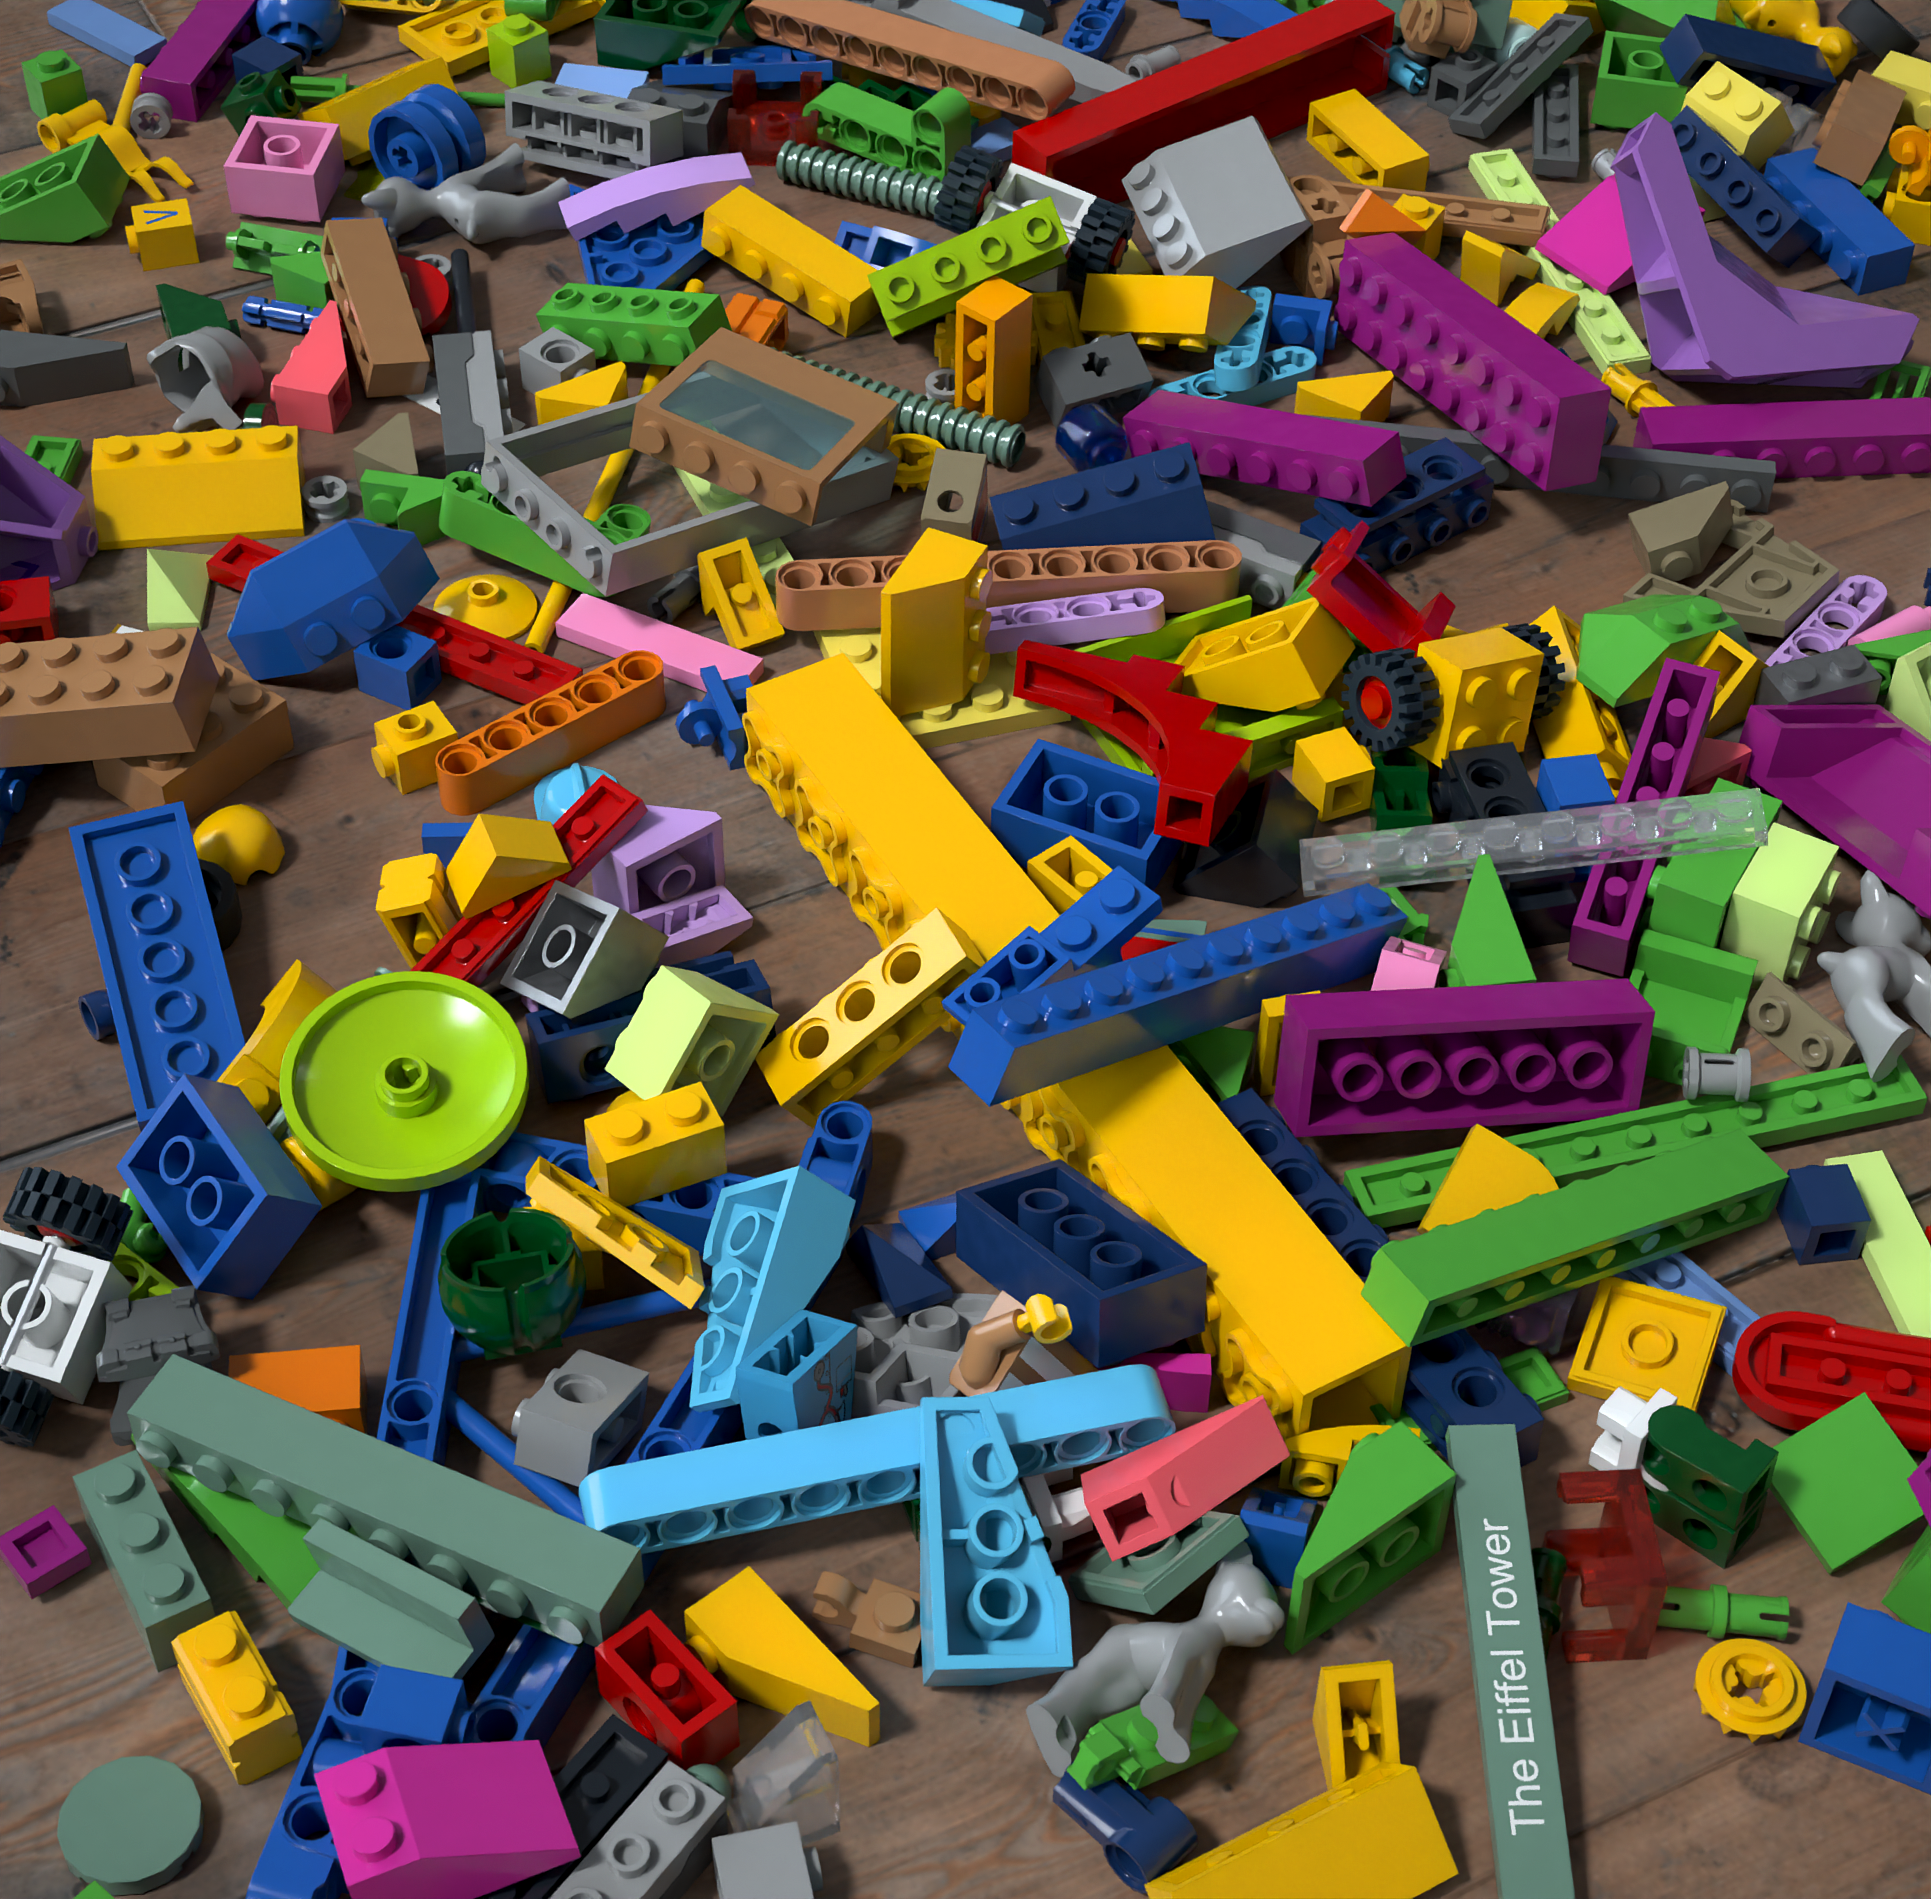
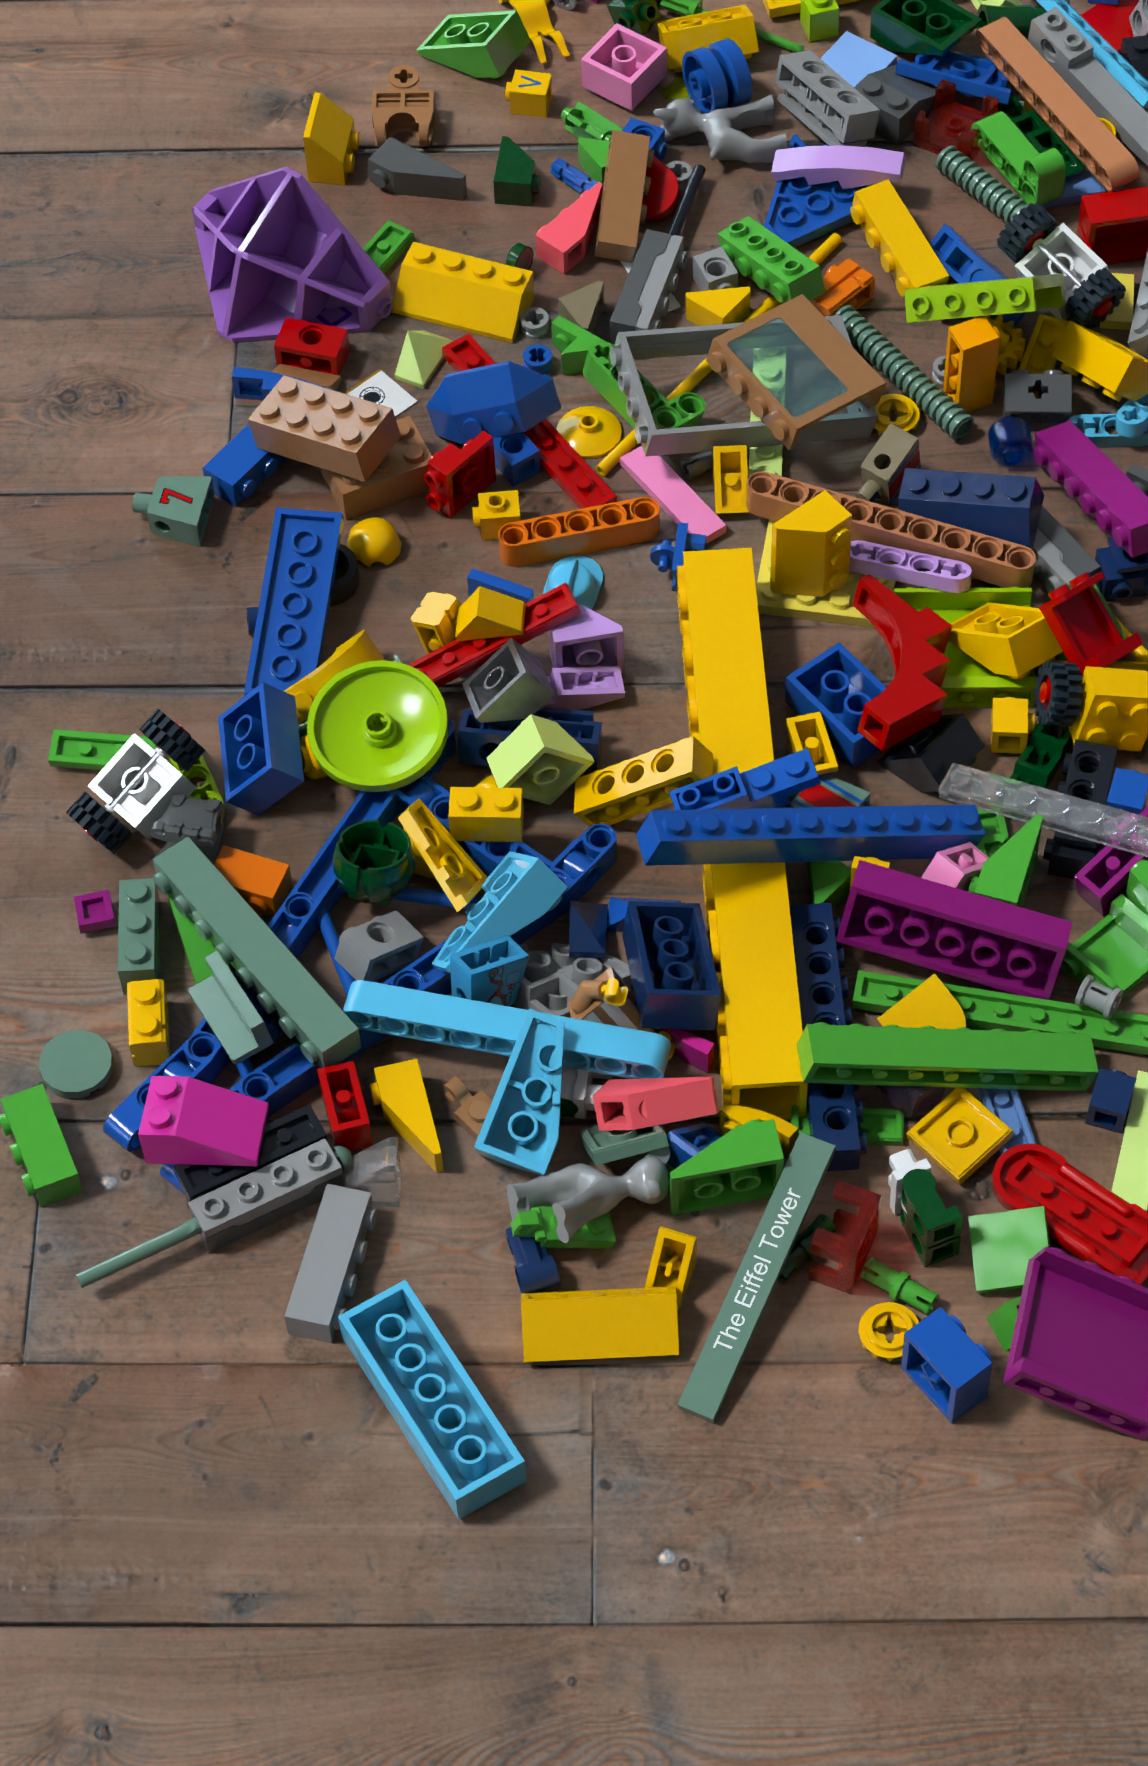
camera: 30 degrees right, 10 degrees up
(140, 1235) = (213, 756): bright green arm -> none
(213, 378) = (504, 218): light grey piece -> none
(330, 707) = (460, 474): none -> red plate
(415, 1711) = (216, 1065): blue brick -> none

